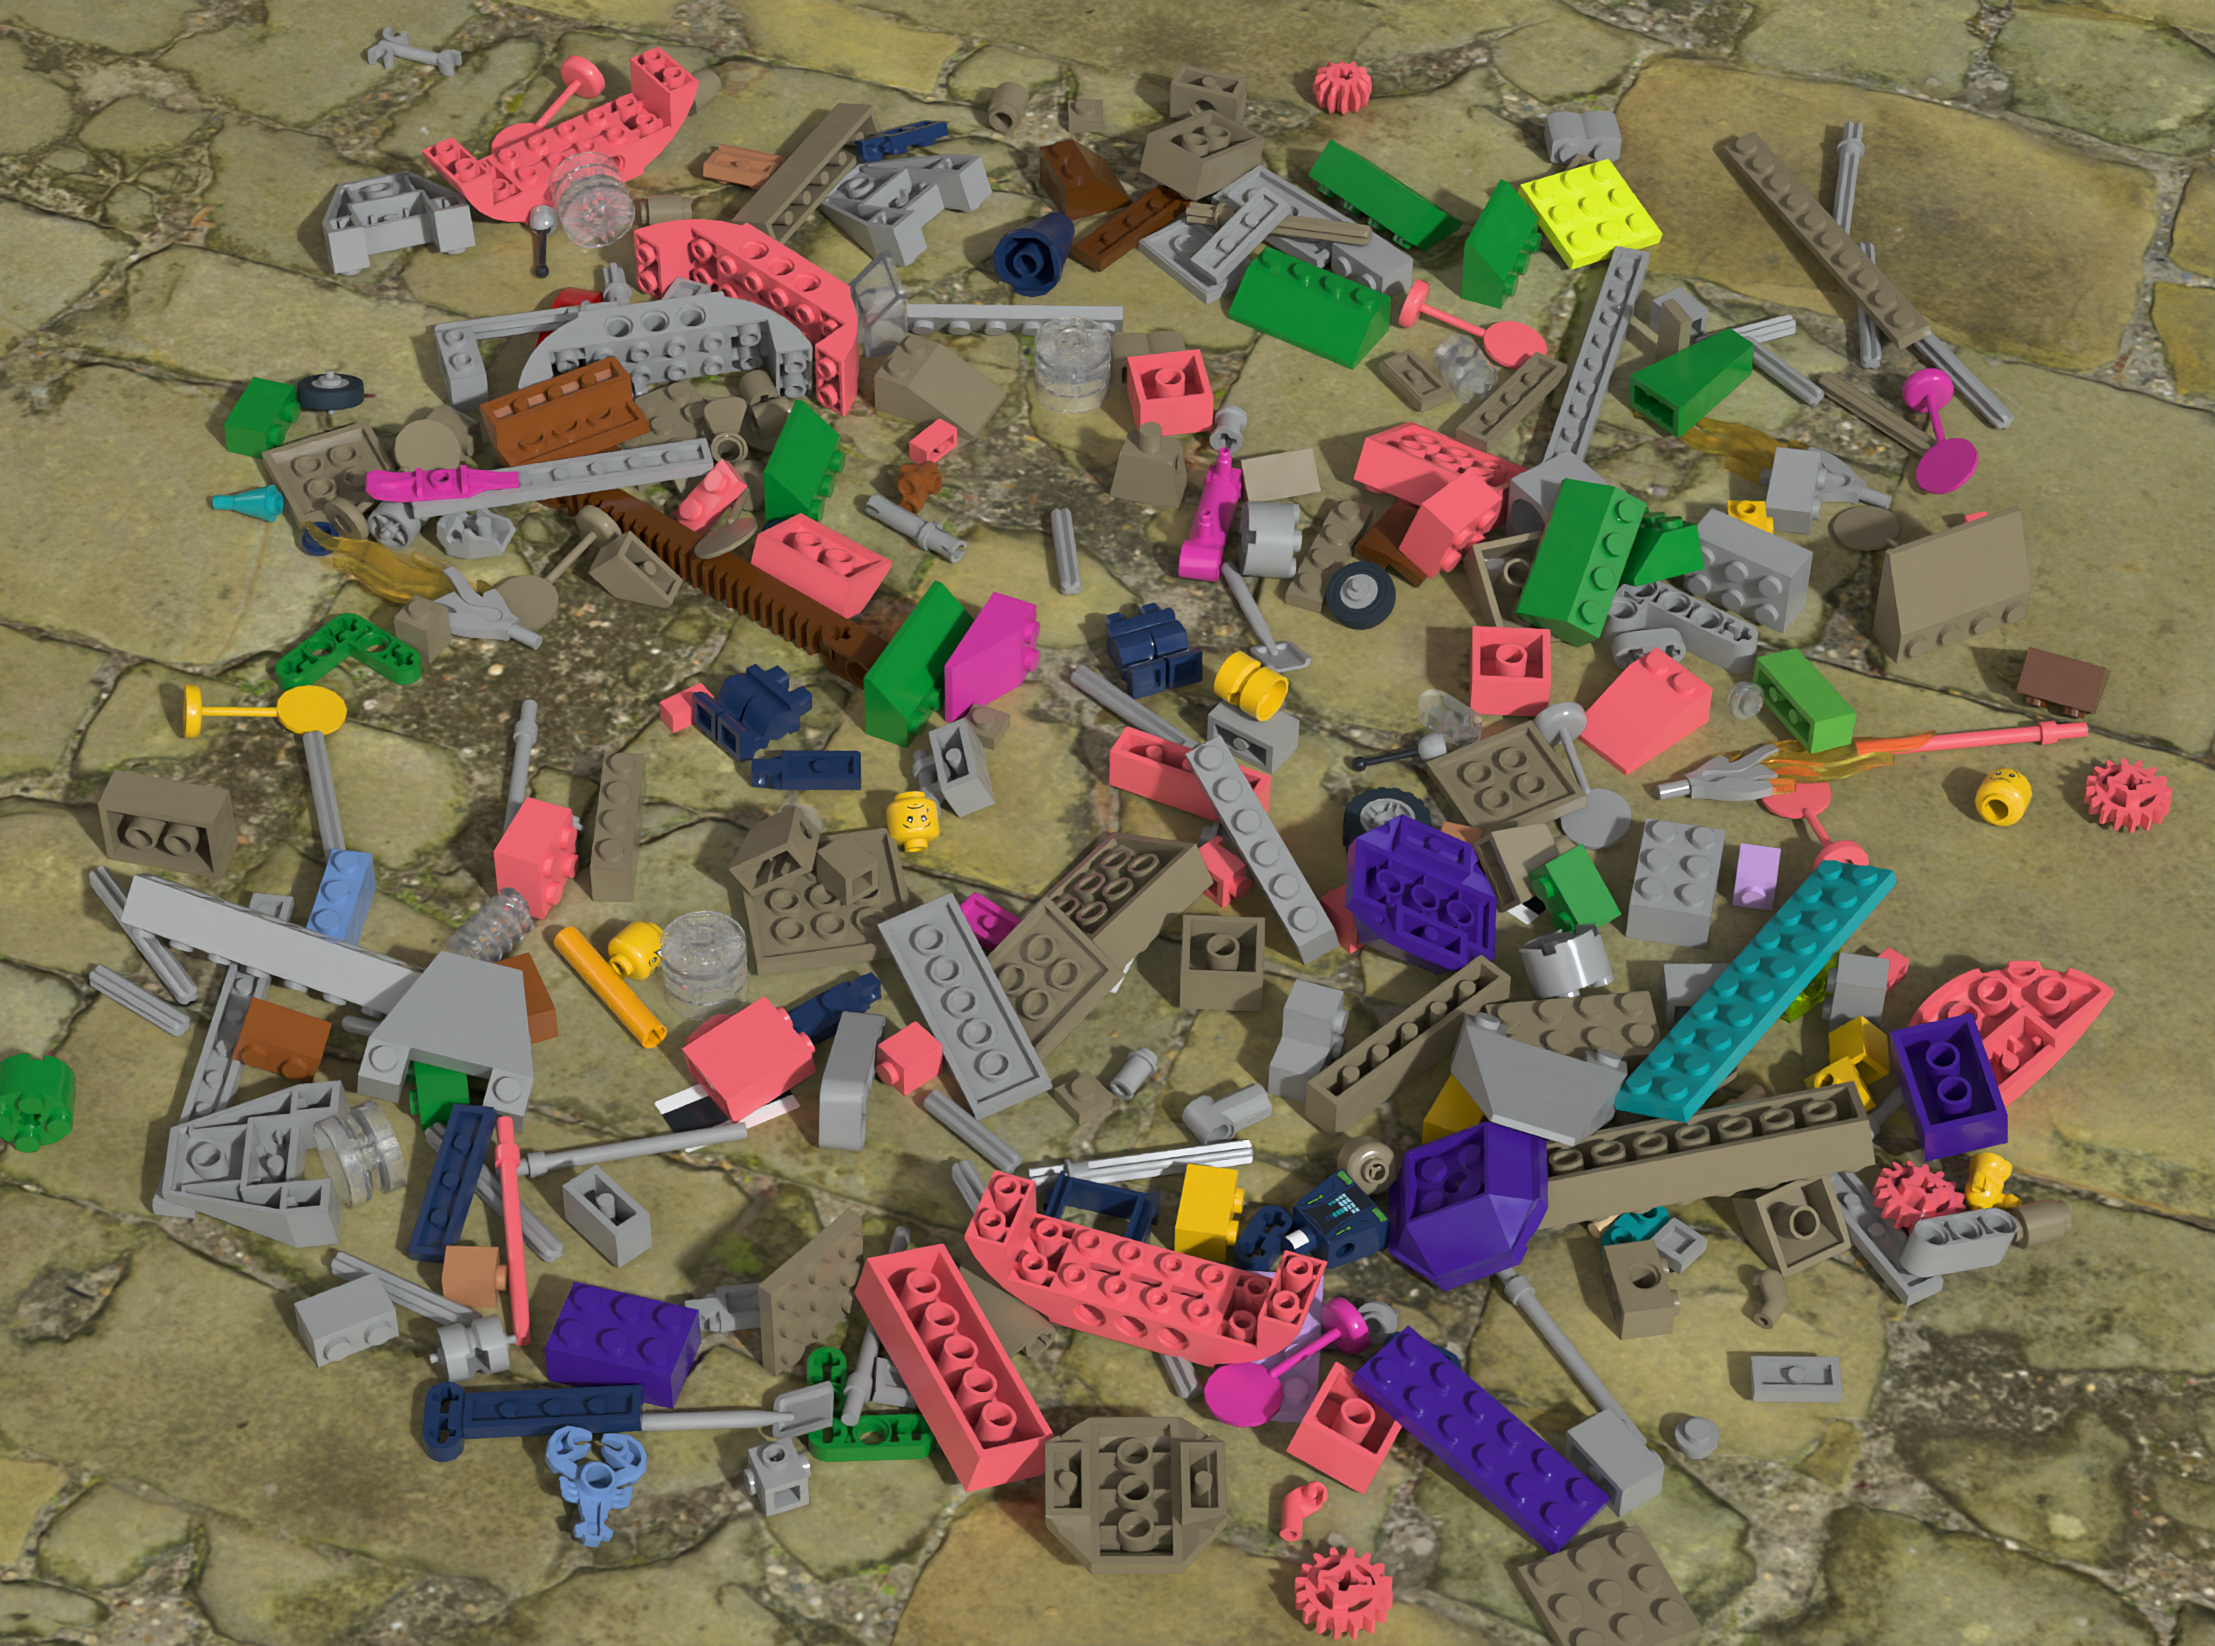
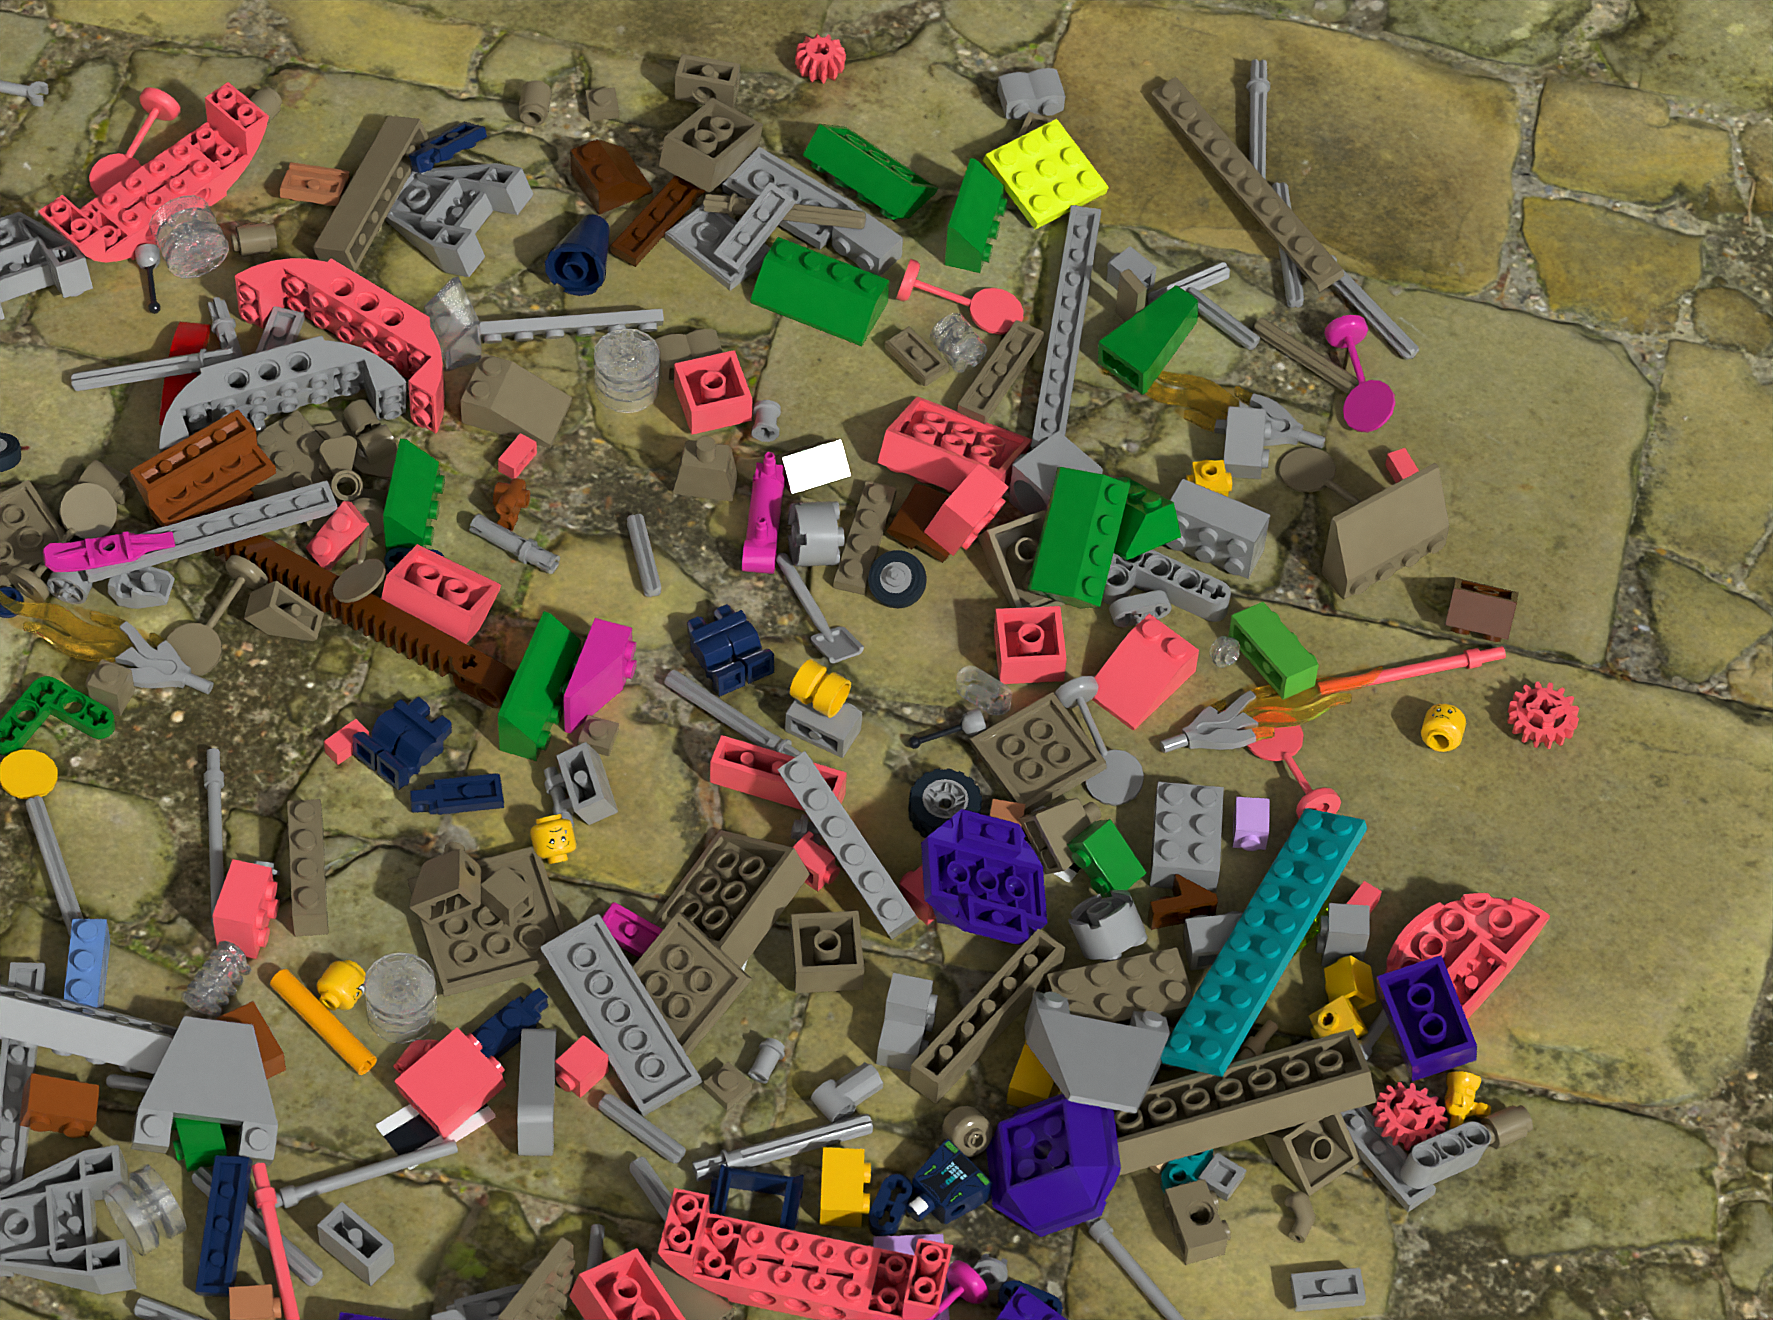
camera: 10 degrees left, 10 degrees up
(462, 369) = (102, 420): light grey brick -> none
(1669, 946) = (1187, 902): none -> reddish brown slope

